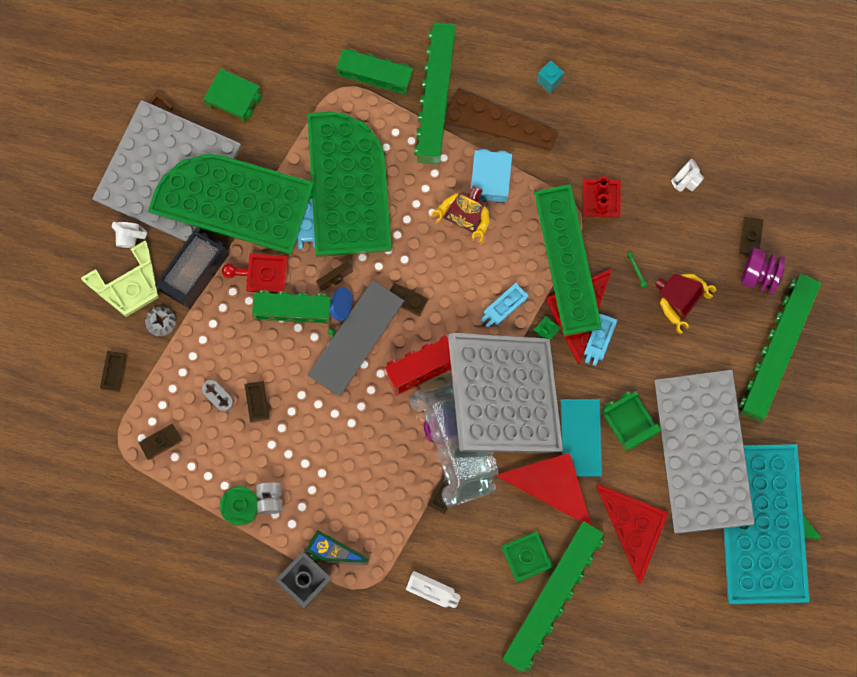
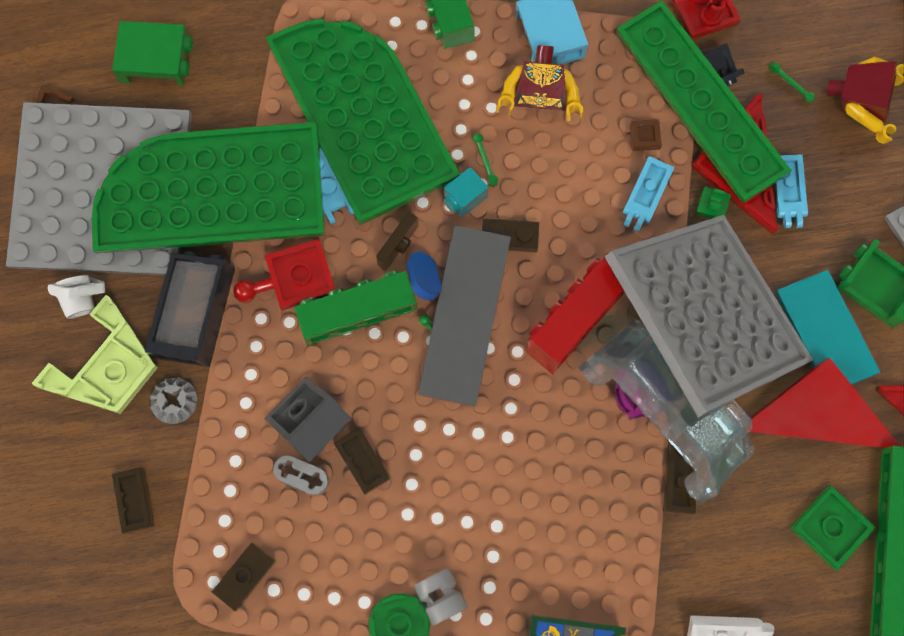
camera: 25 degrees left, 0 degrees up
(235, 363) = (308, 418): none -> dark grey slope
(389, 262) = (465, 192): none -> teal brick
(412, 260) = (492, 179): none -> green hinge
(521, 268) = (645, 135): none -> reddish brown plate
(593, 241) = (723, 63): none -> black bracket

